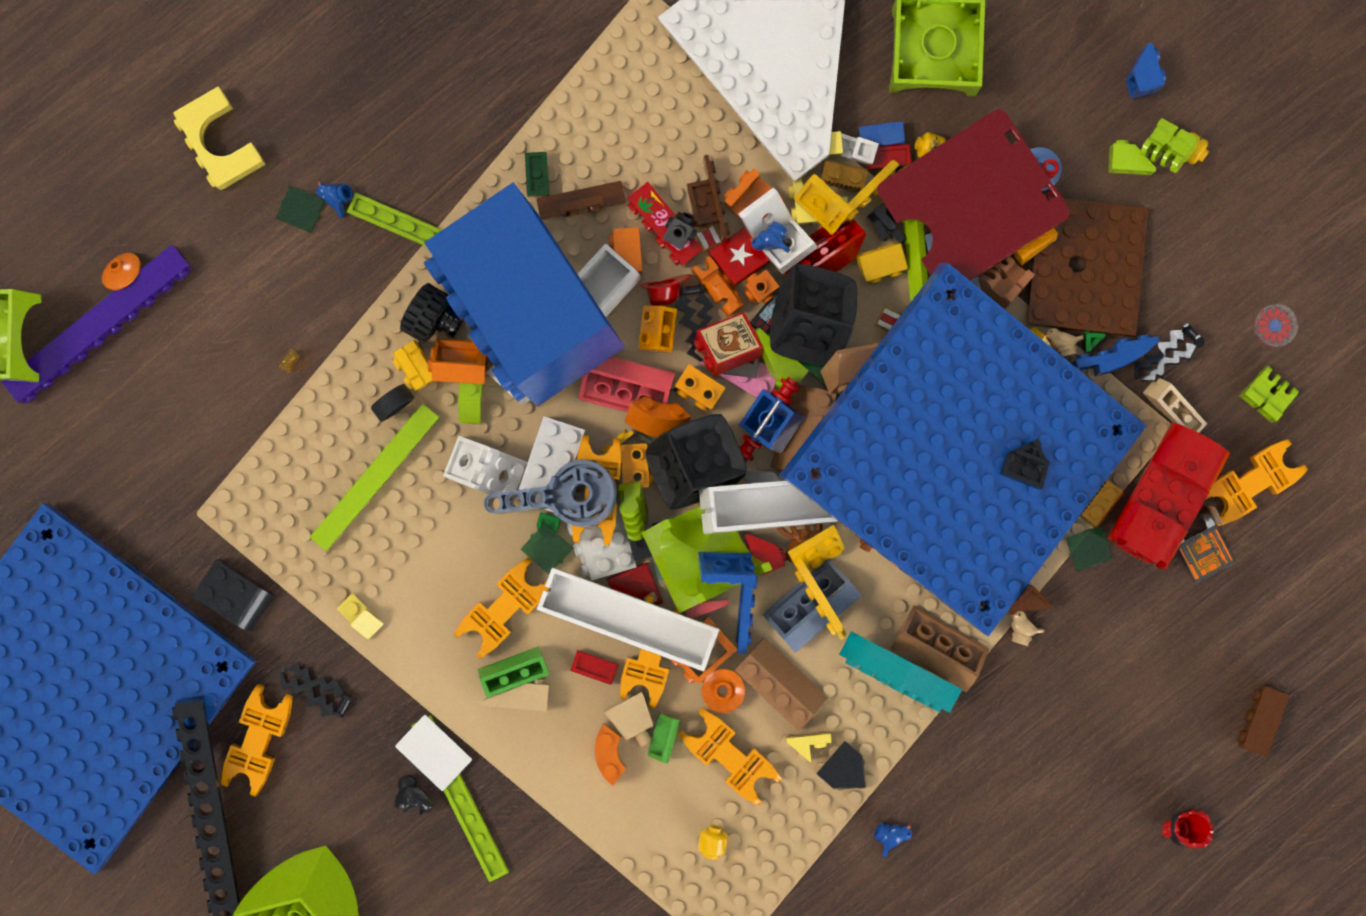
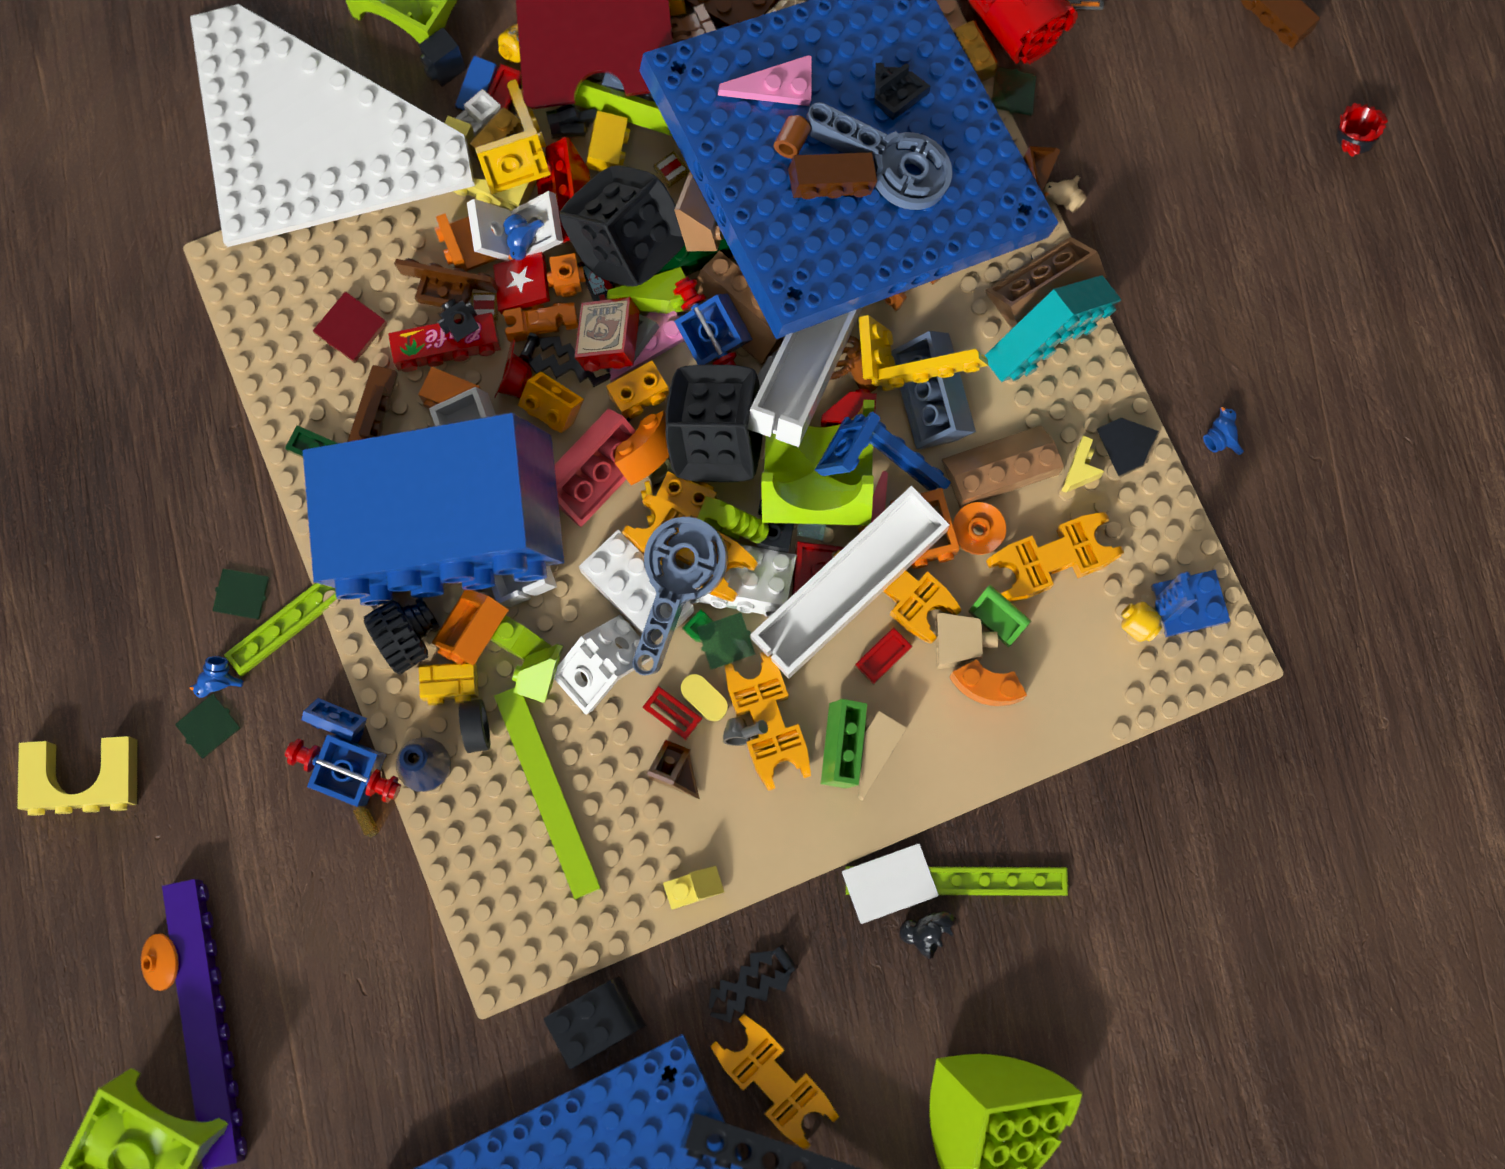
camera: 60 degrees left, 10 degrees down
(315, 327) = (344, 770): none -> blue brick
(347, 299) = (335, 720): none -> blue bracket
(357, 379) = (429, 770): none -> dark blue cone
(405, 178) = (240, 594): none -> clear green piece
(435, 560) = (674, 769): none -> reddish brown slope
(452, 427) = (537, 673): none -> slope
(475, 539) = (690, 726): none -> red tile
(484, 591) = (738, 733): none -> dark grey bar
(498, 554) = (704, 697): none -> light yellow tile
(642, 147) = (350, 327): none -> dark red tile
(746, 871) = (1190, 603): none -> blue bracket
(886, 98) = (441, 57): none -> black brick
(922, 454) = (832, 175): none -> reddish brown brick
(938, 409) = (792, 136): none -> dark orange brick
(962, 489) = (888, 161): none -> sand blue beam
(980, 378) = (781, 84): none -> bright pink wing

